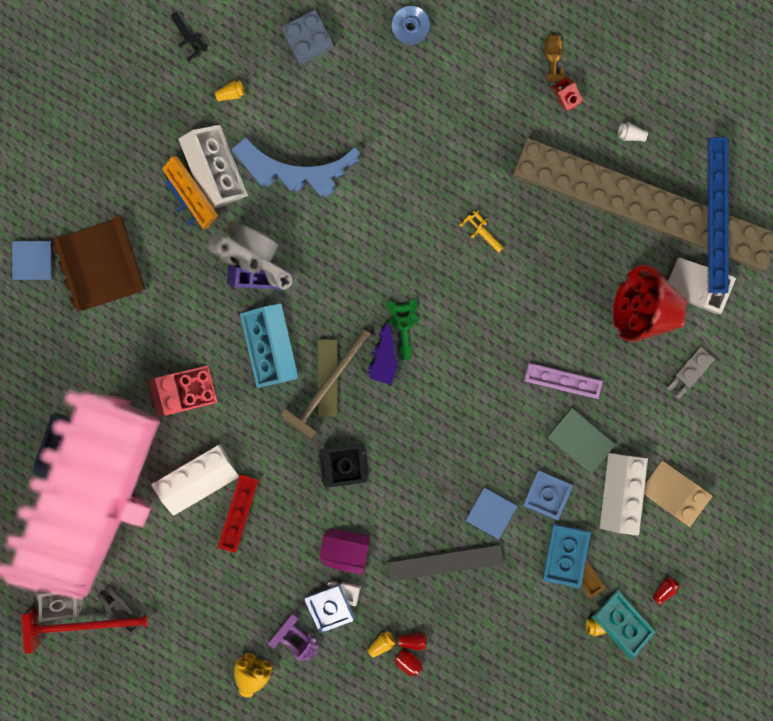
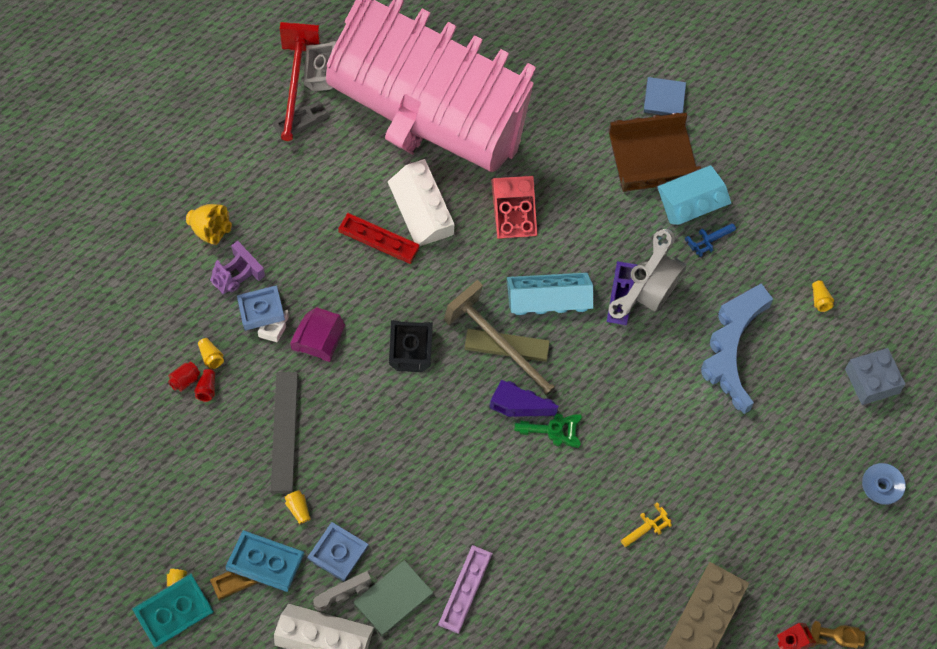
camera: 90 degrees right, 25 degrees down
(146, 221) = (693, 195): none -> medium azure slope
(187, 36) = (878, 267): black piece -> none
(190, 192) = (725, 238): light orange plate -> none
(213, 165) = (743, 268): white slope -> none
(491, 513) = (329, 488): medium blue tile -> none
(514, 537) = (297, 505): none -> yellow cone
(585, 485) = (340, 592): none -> light grey hinge

